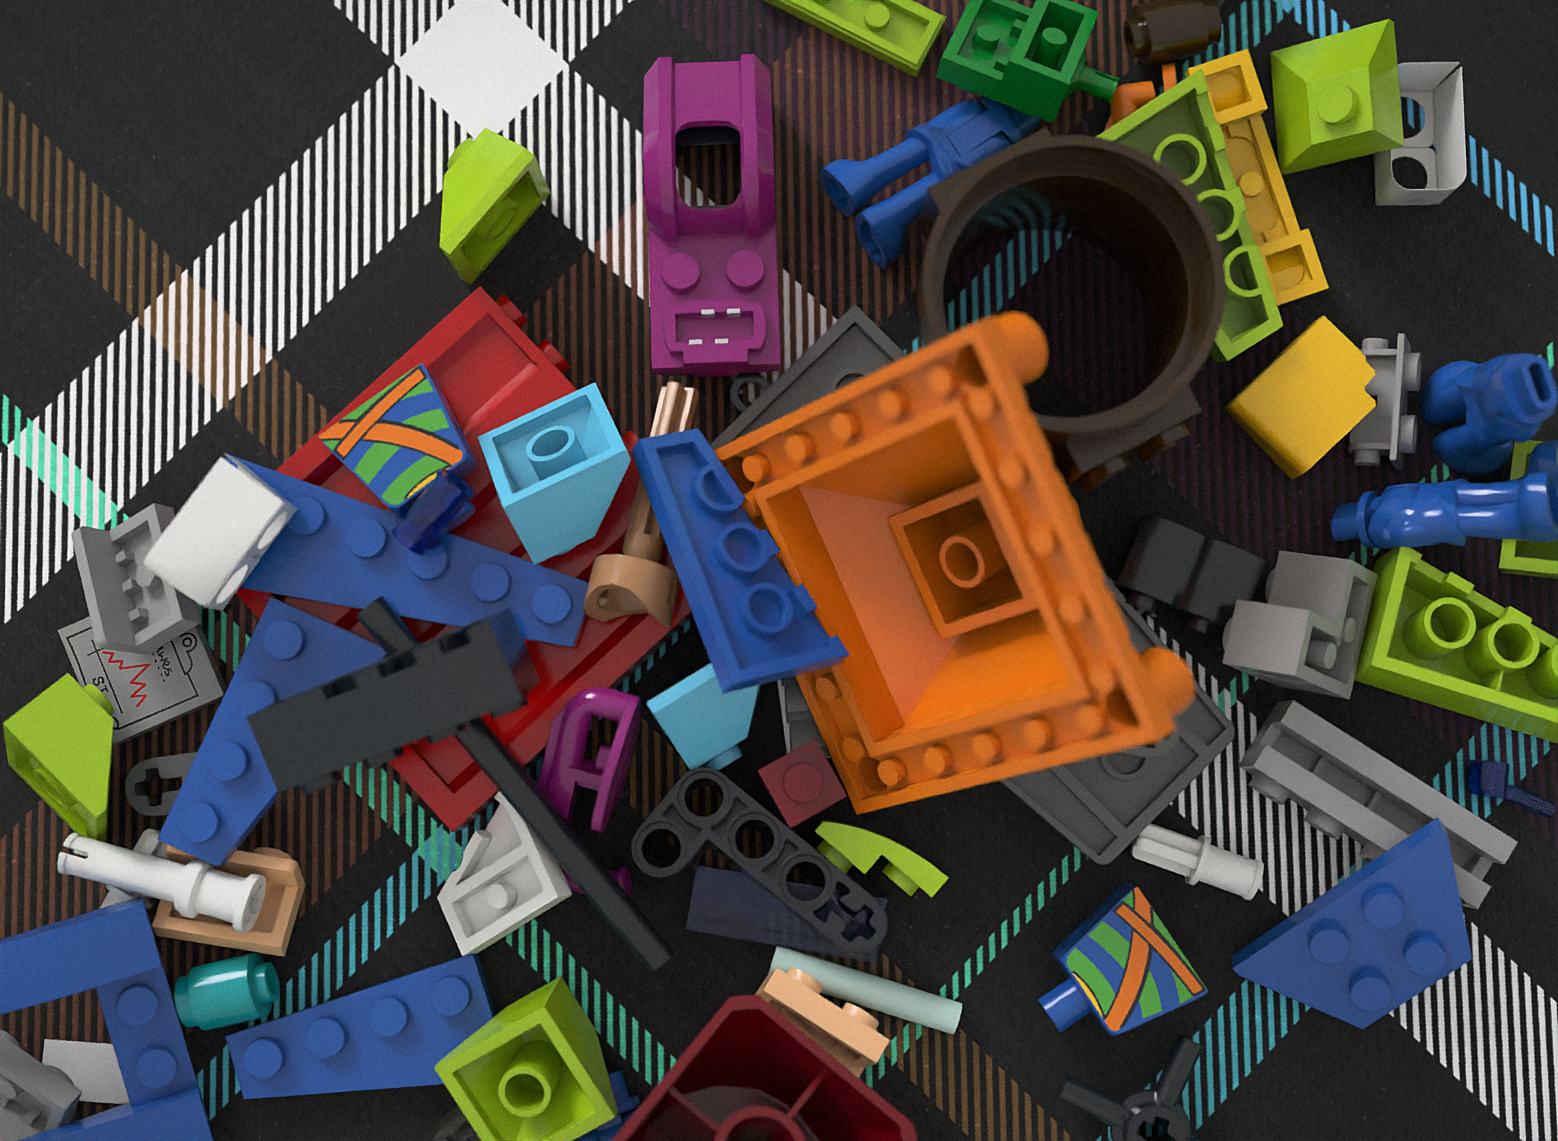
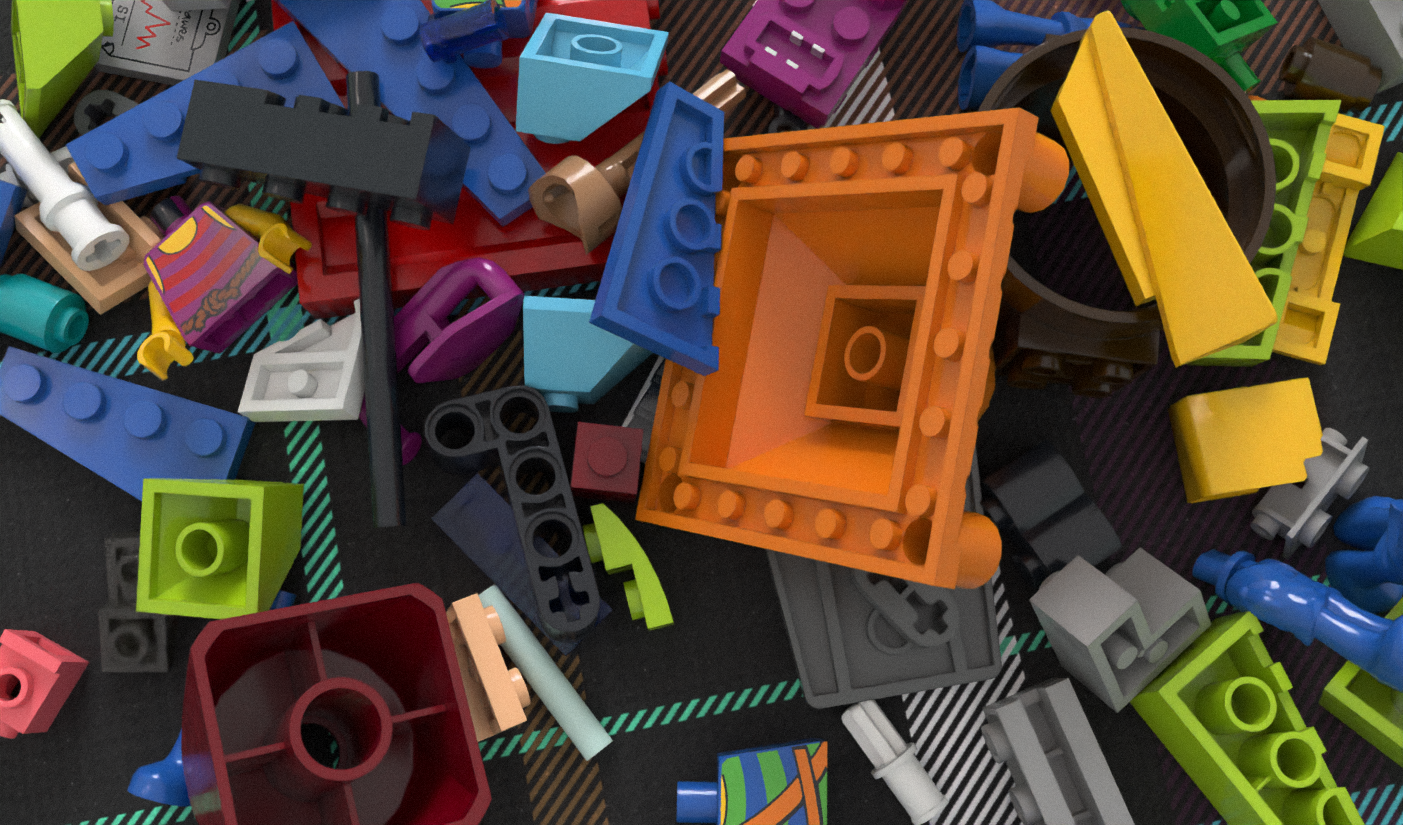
camera: 30 degrees right, 5 degrees down
(358, 858) = (213, 277): none -> torso
(1116, 298) = (1155, 202): none -> yellow wedge

